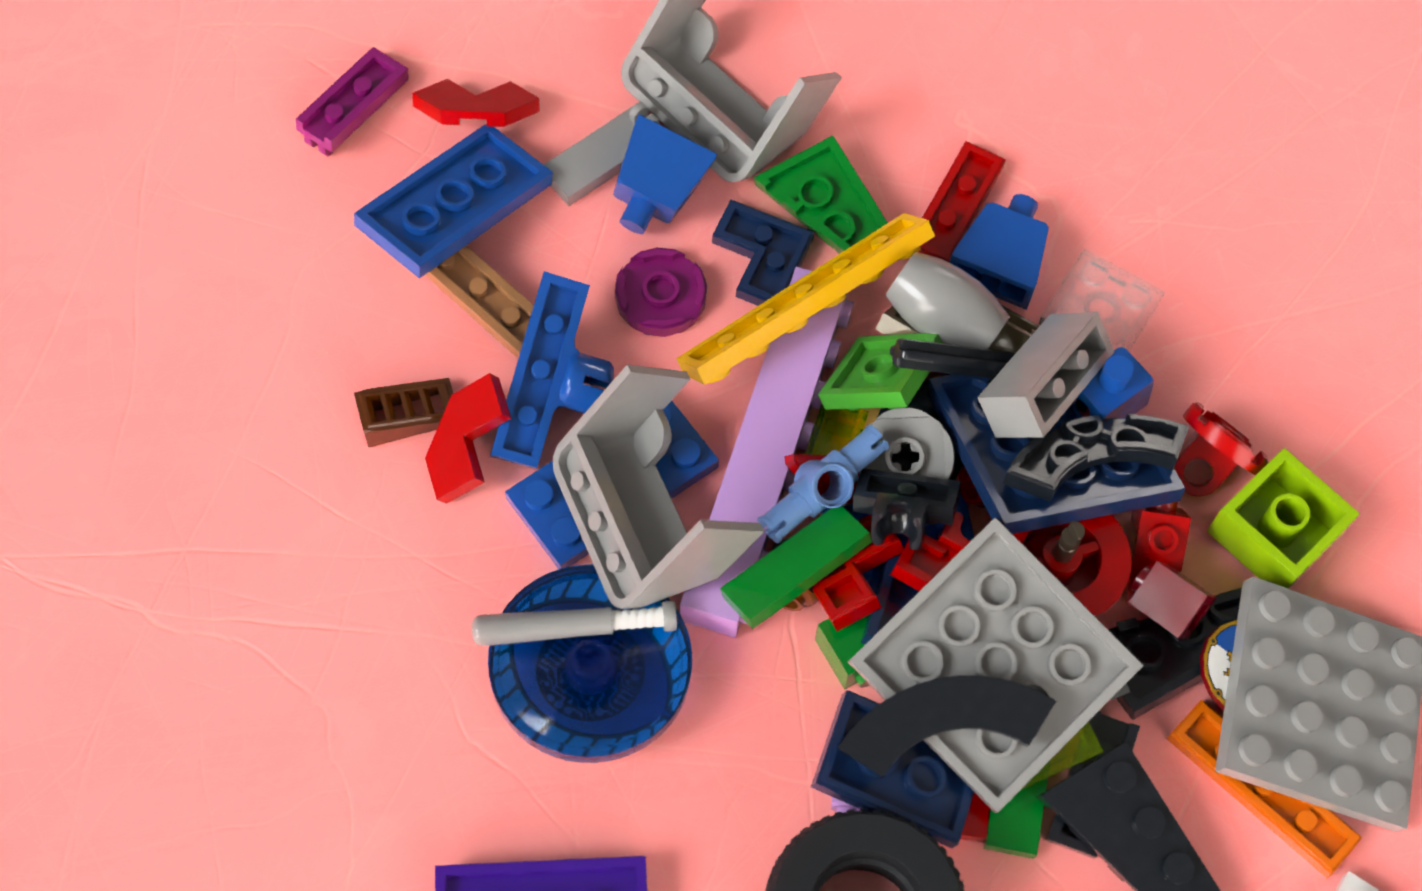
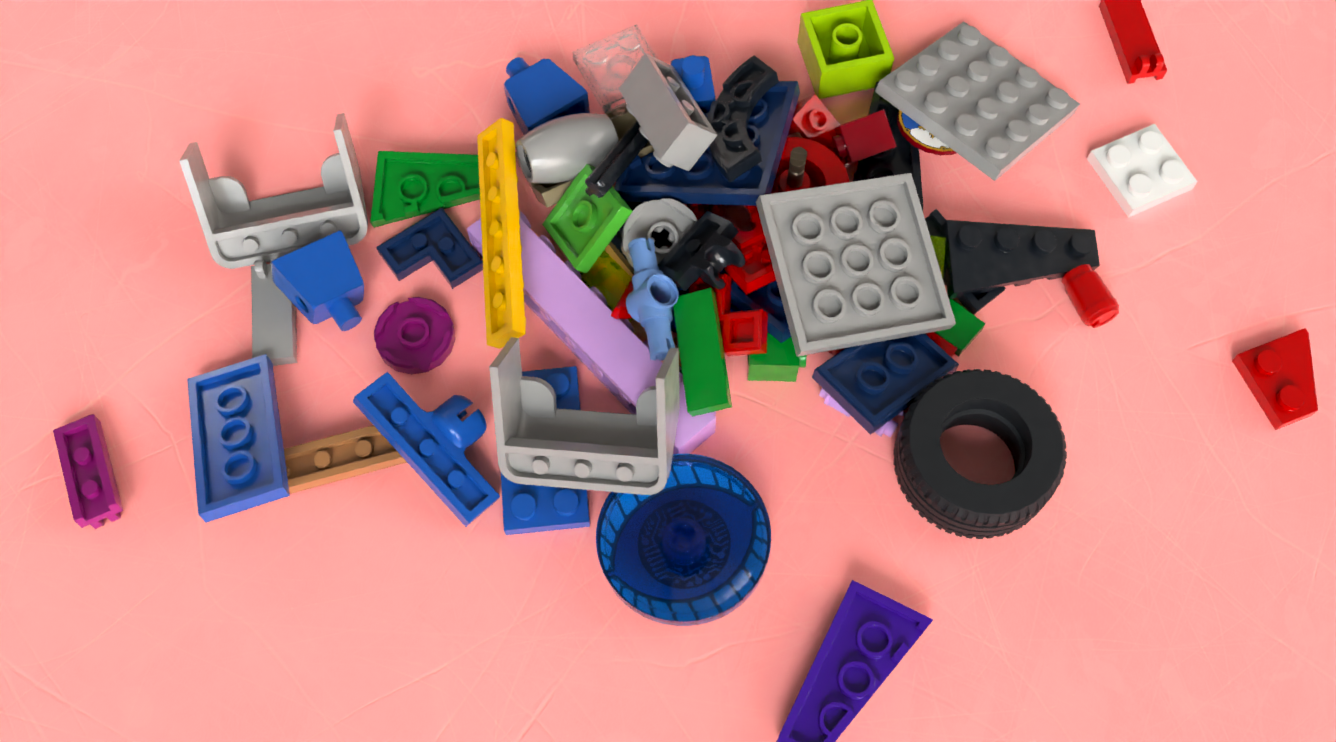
camera: 55 degrees left, 0 degrees up
(388, 396) = (389, 604): reddish brown slope -> none
(452, 453) = (427, 524): tile -> none
(499, 106) = (152, 397): red tile -> none
(558, 624) = (638, 558): light grey piece -> none
(941, 707) = (870, 313): black tile -> none
(960, 198) = (476, 98): red tile -> none
(1220, 446) = (773, 51): red tile -> none
(1307, 828) = (1049, 159): orange tile -> none

